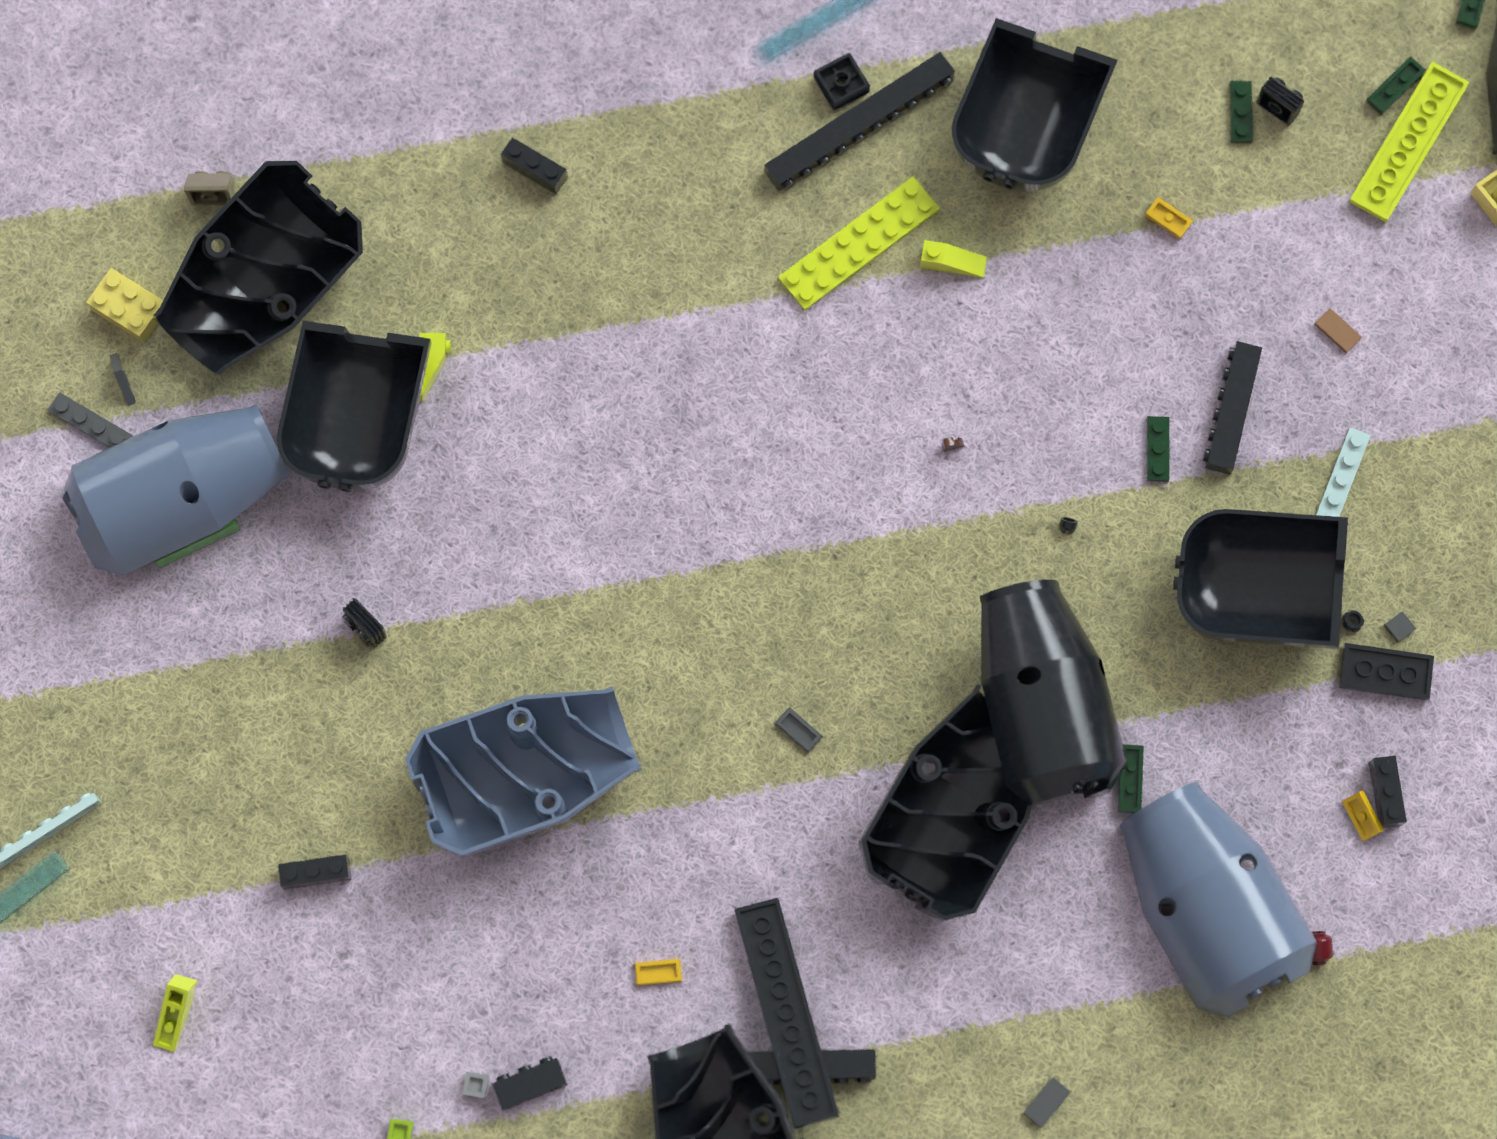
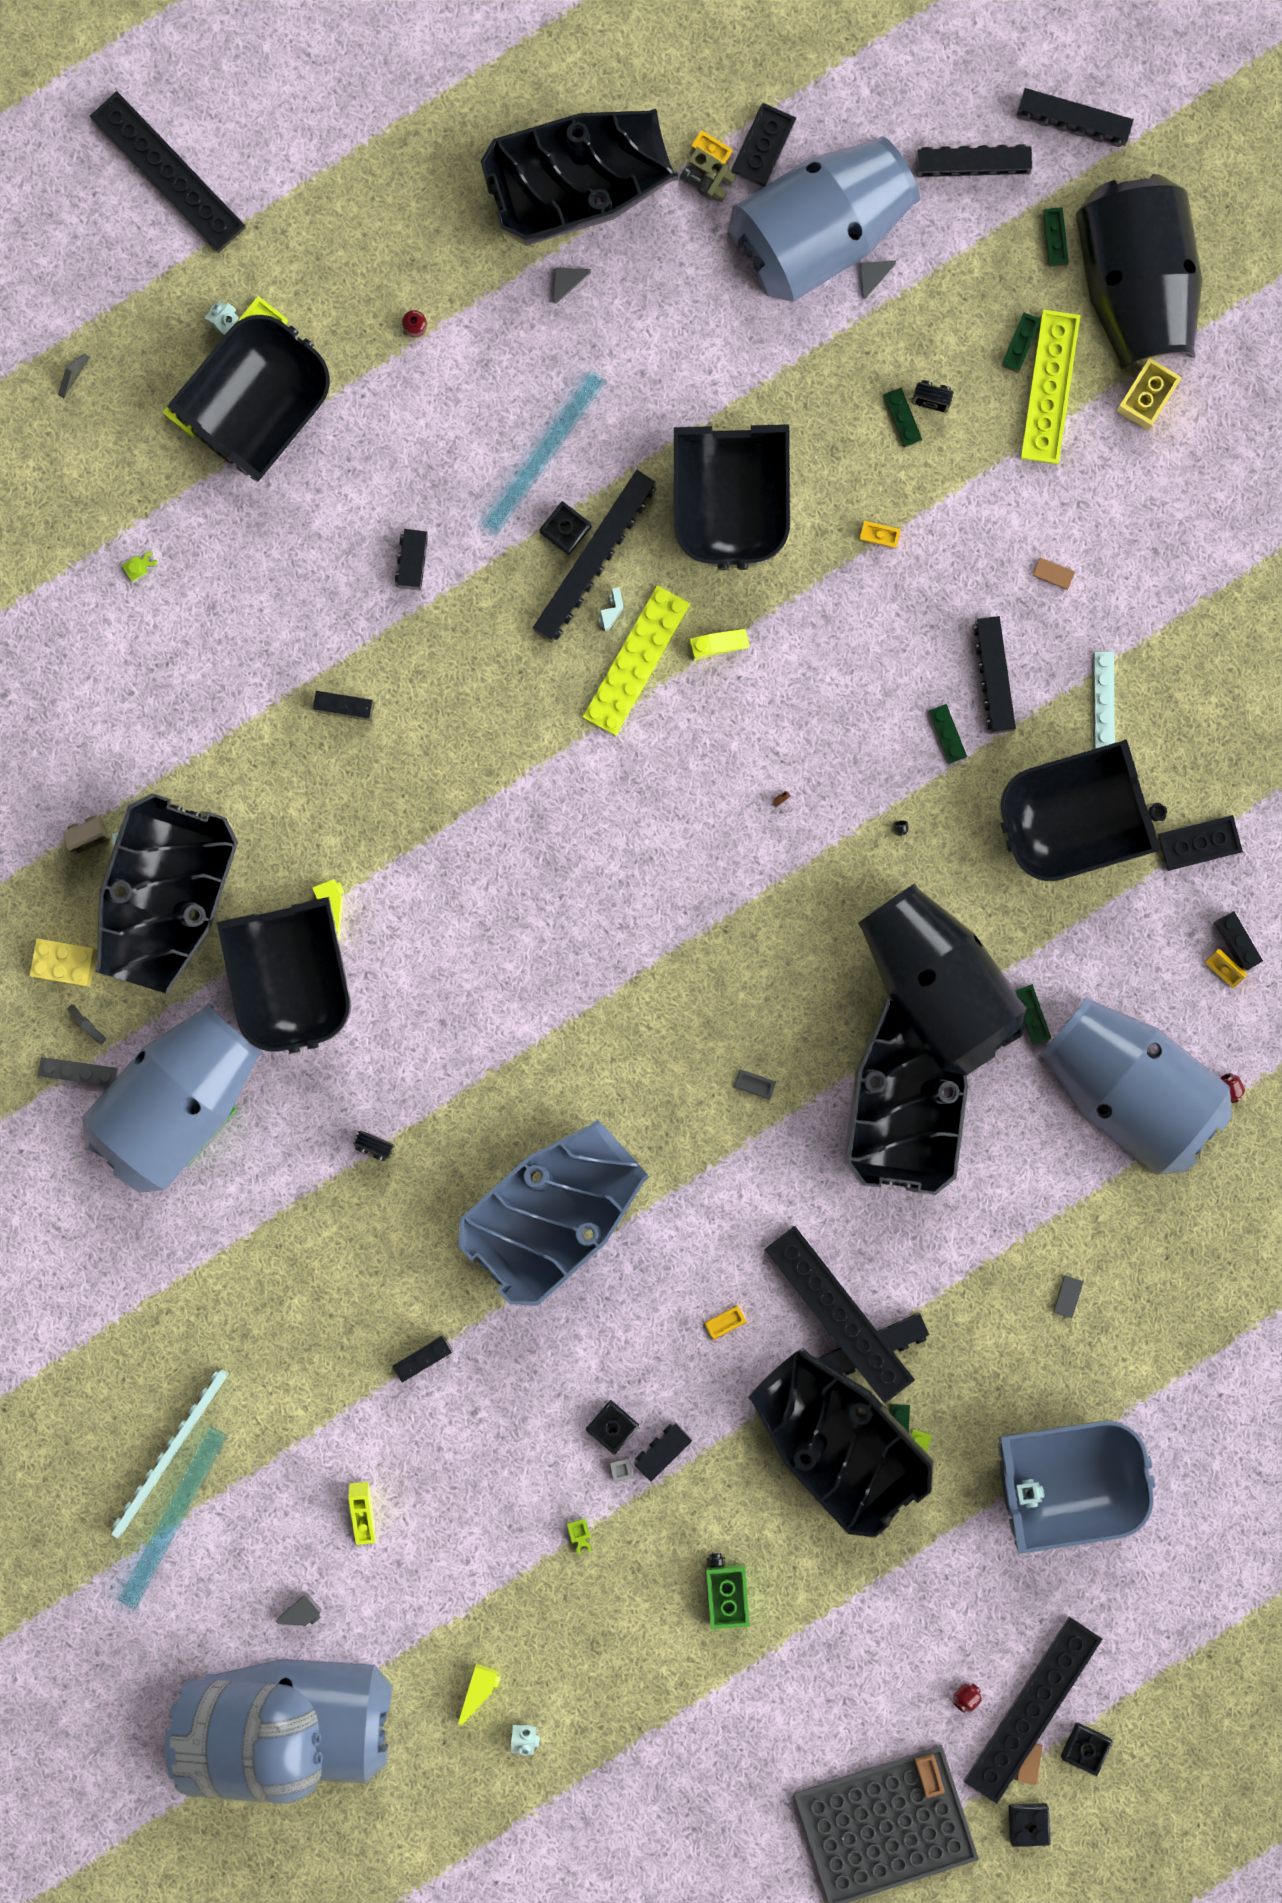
camera: 20 degrees left, 10 degrees up
(61, 1092) = (301, 1612): none -> dark grey slope
(499, 1040) = (615, 1439): none -> black brick
(669, 50) = (411, 559): none -> black brick
(851, 186) = (610, 615): none -> light aqua slope
(1399, 626) = (1196, 801): dark grey tile -> none

